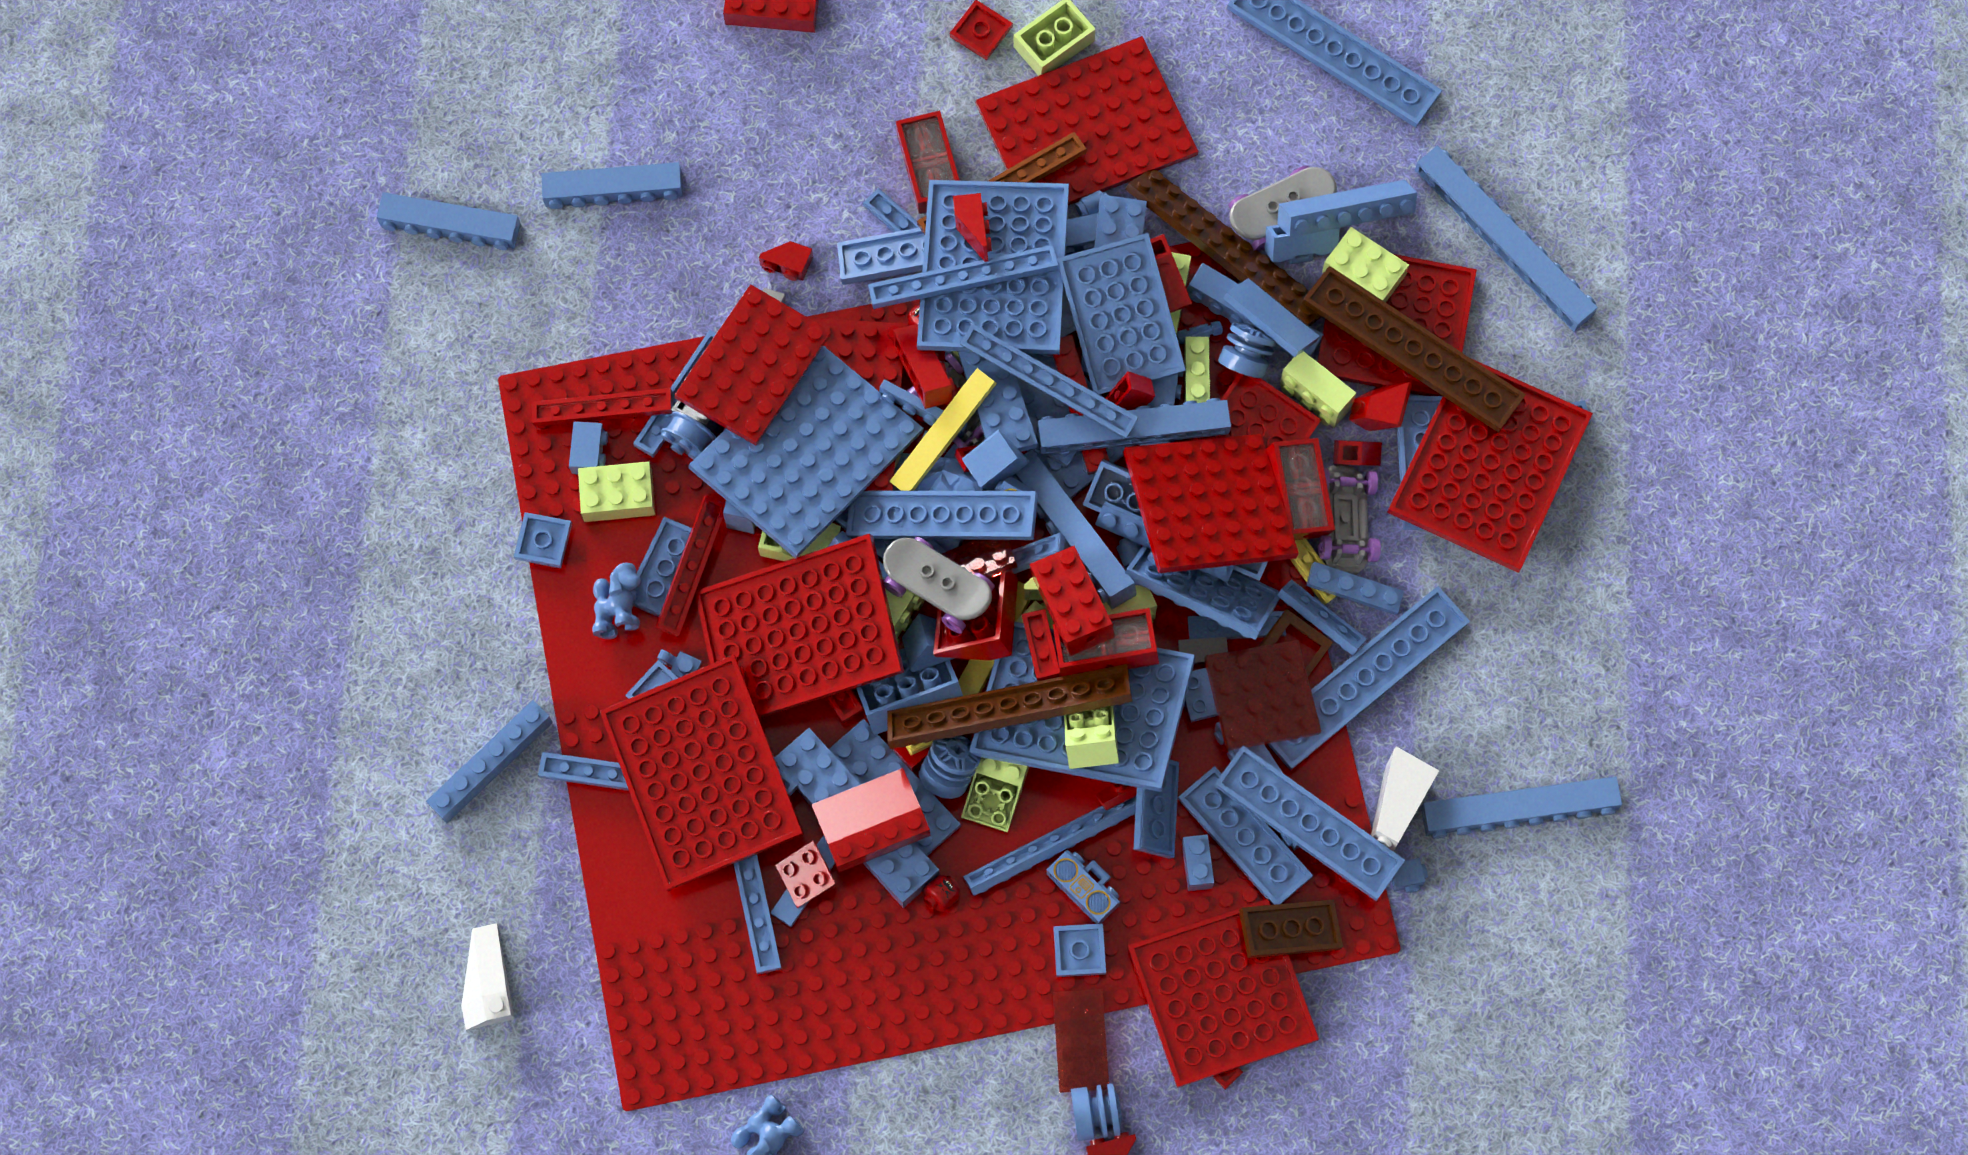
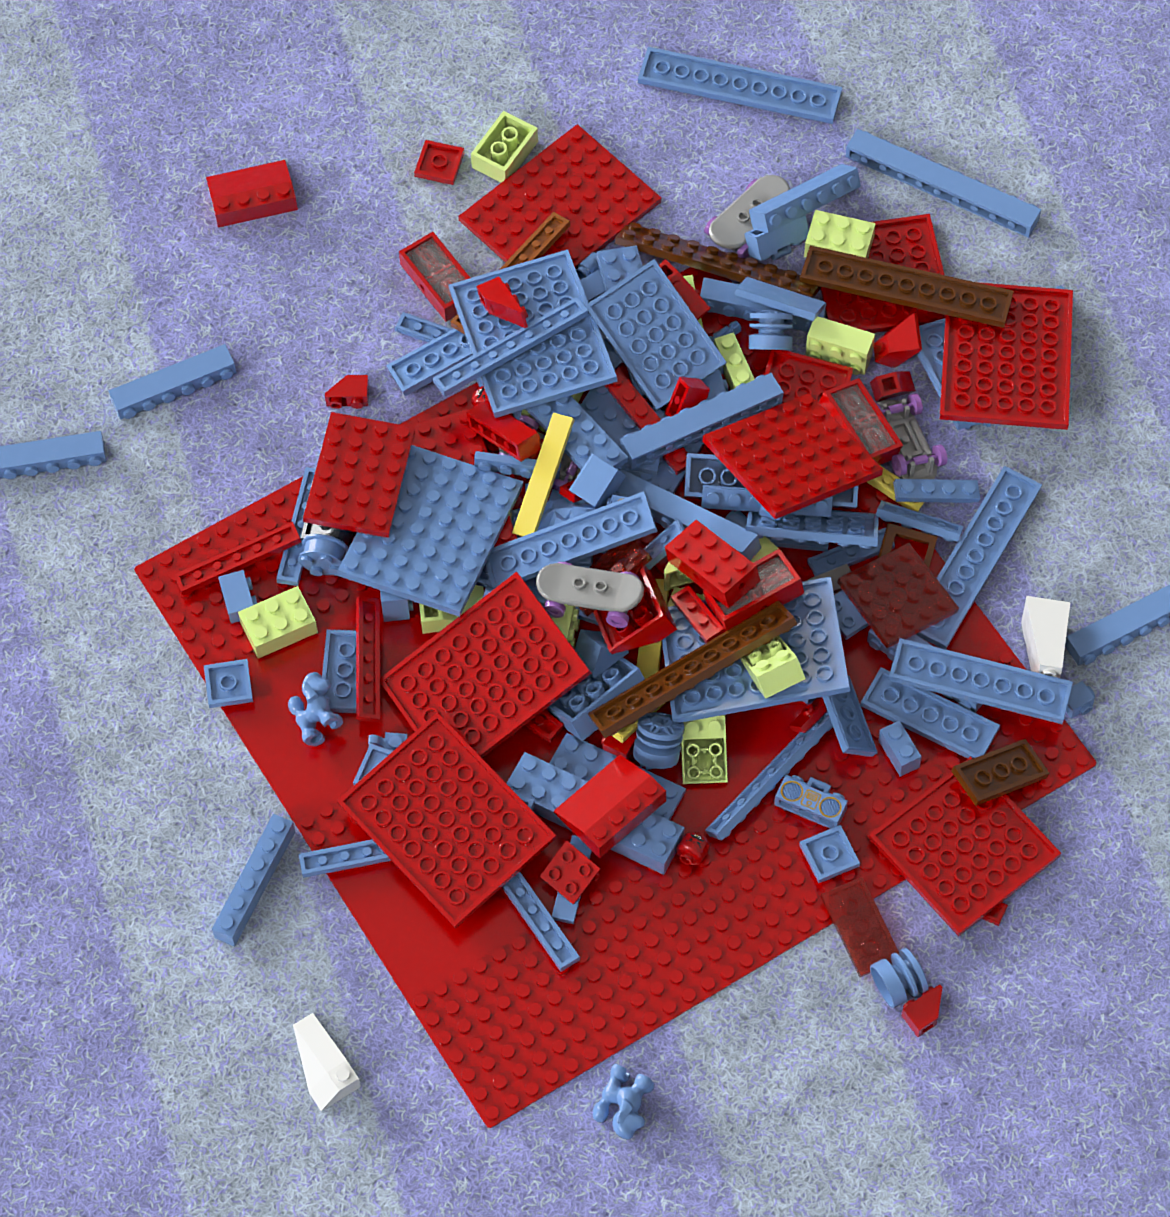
camera: 20 degrees left, 10 degrees down
(1049, 381) = (618, 402): medium blue plate -> none

